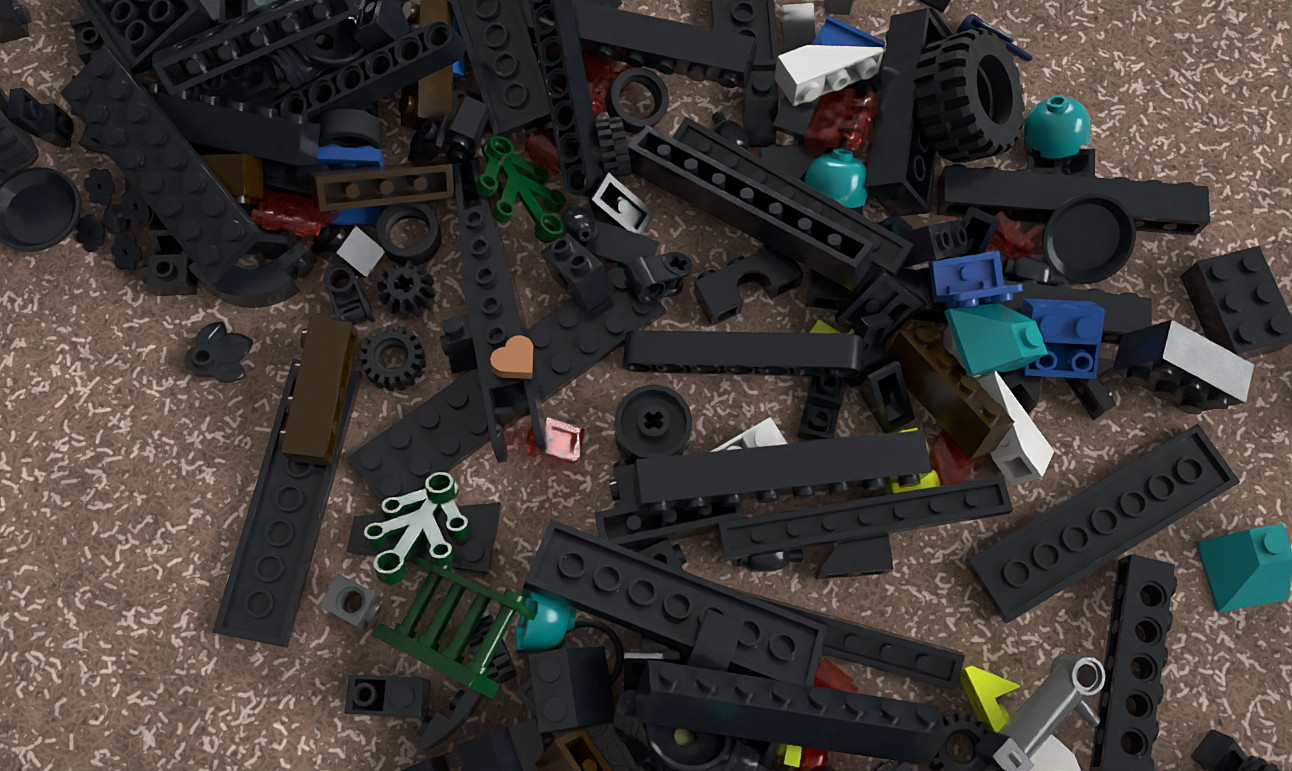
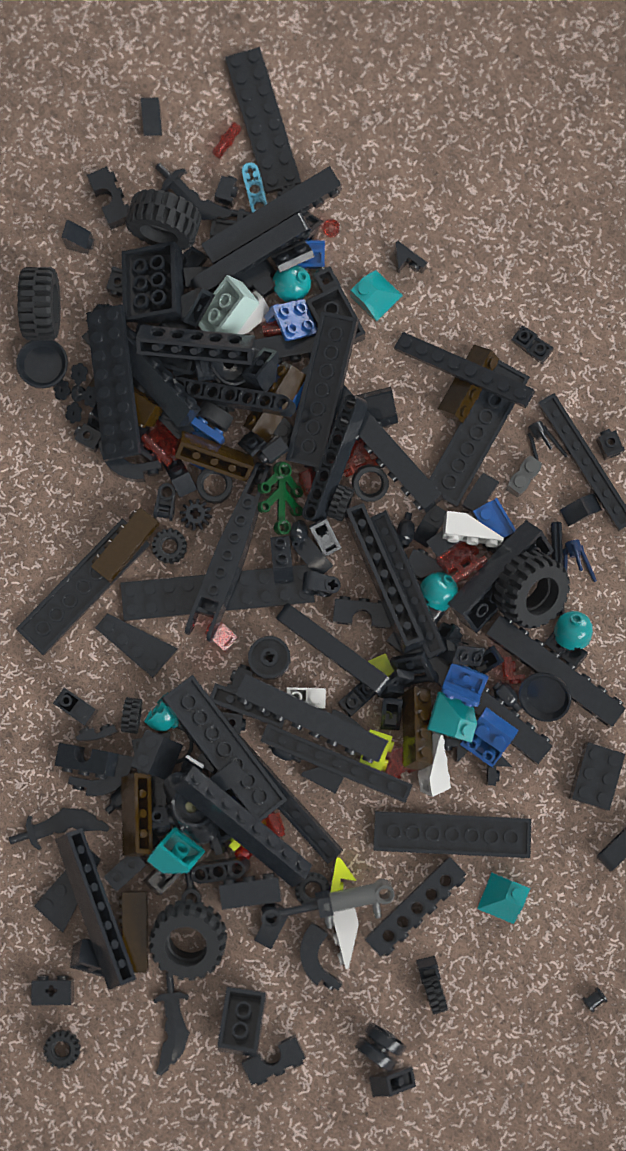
camera: 35 degrees right, 10 degrees up
(40, 120) = (69, 315): black slope -> none
(223, 353) = (92, 492): black plate -> none
(341, 591) = (77, 648): dark grey brick -> none
(439, 490) = (134, 636): plant -> none
(450, 660) = (110, 709): dark green fence -> none
(458, 343) = (203, 559): black brick -> none
(514, 359) = (220, 591): nougat tile -> none
(1183, 367) = (536, 789): black brick -> none

